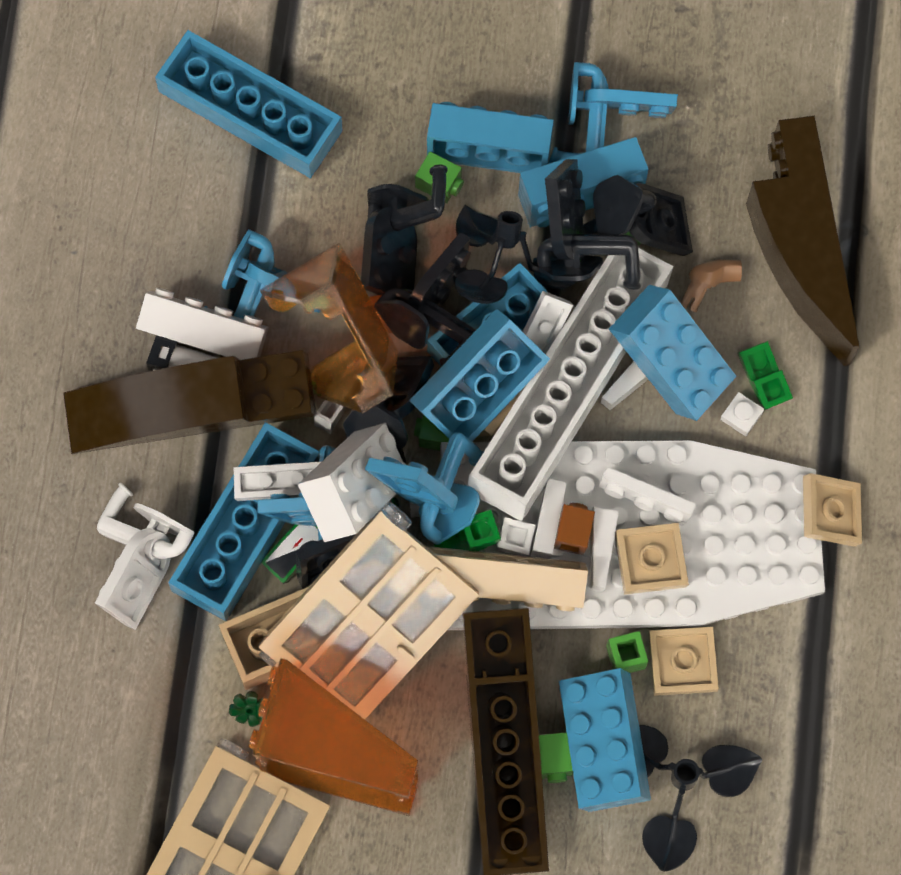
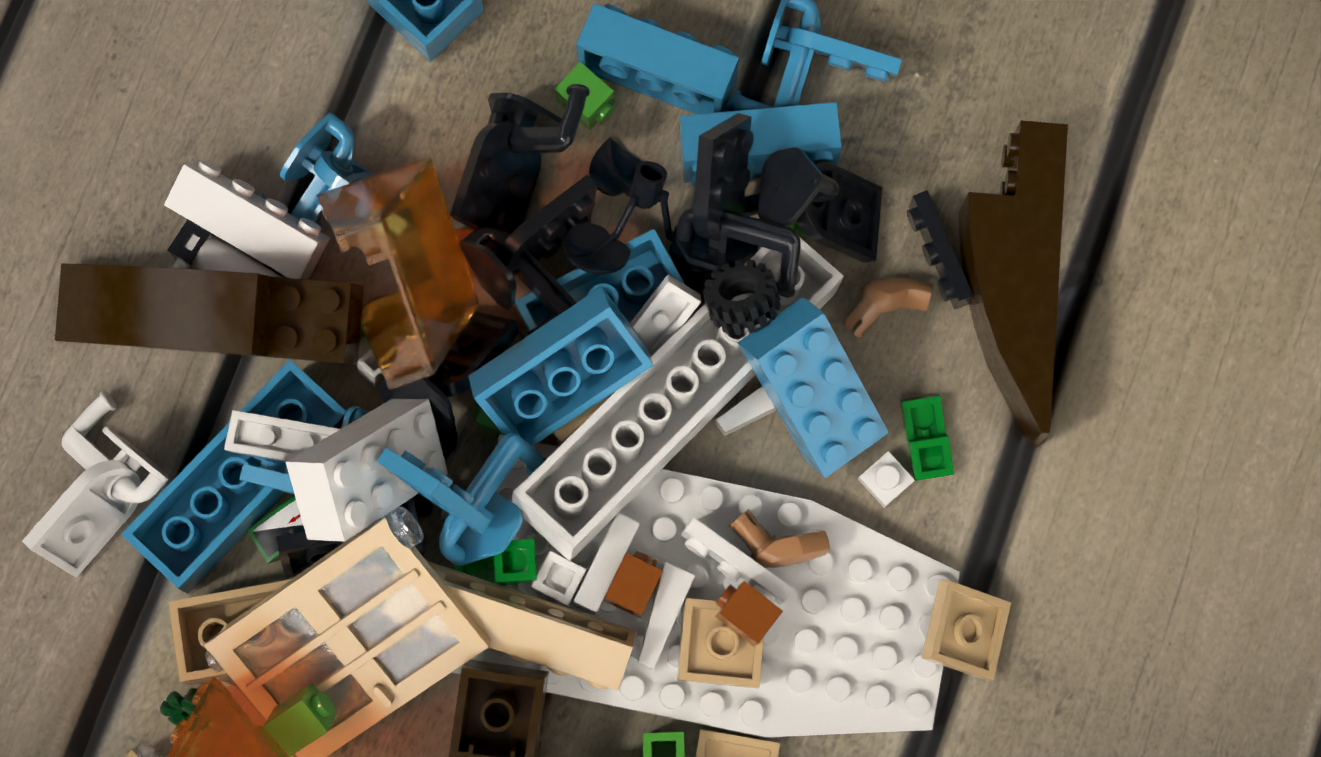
camera: 15 degrees right, 5 degrees up
(349, 681) = (301, 719): none -> bright green brick
(609, 305) = (745, 312): none -> black tyre
(666, 528) = (747, 612): none -> dark orange brick
(680, 478) = (781, 550): none -> medium nougat arm
(739, 234) = (939, 251): none -> black plate

